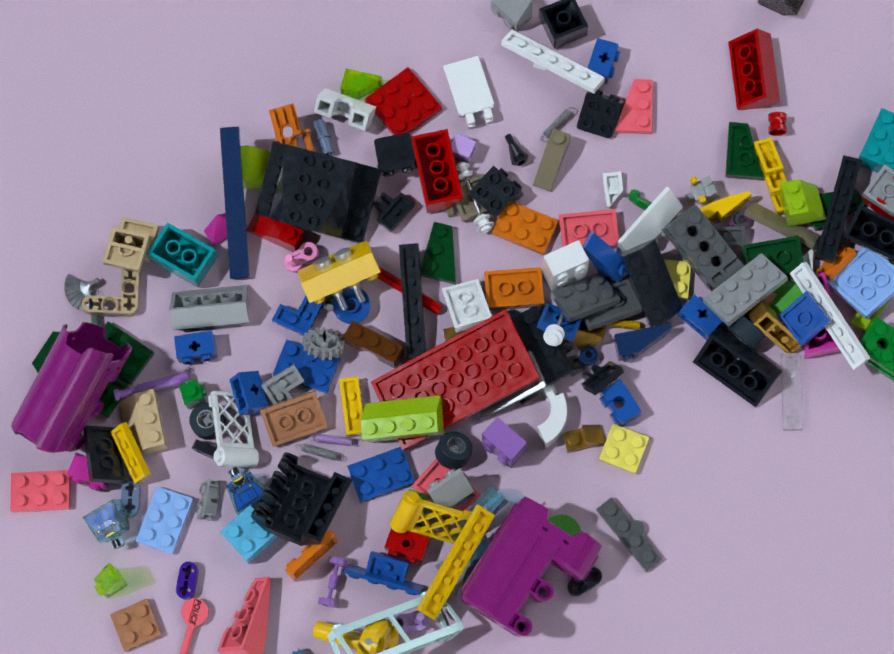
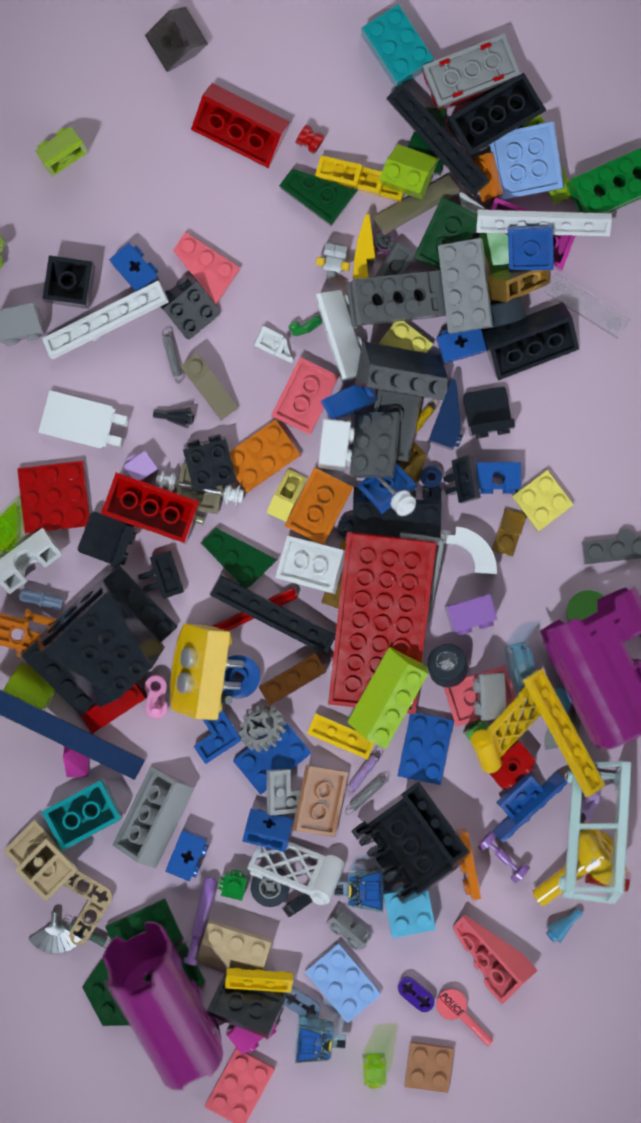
camera: 65 degrees left, 15 degrees up
(507, 258) = (286, 495): none -> light yellow slope
(663, 368) = (488, 412): none -> black bracket

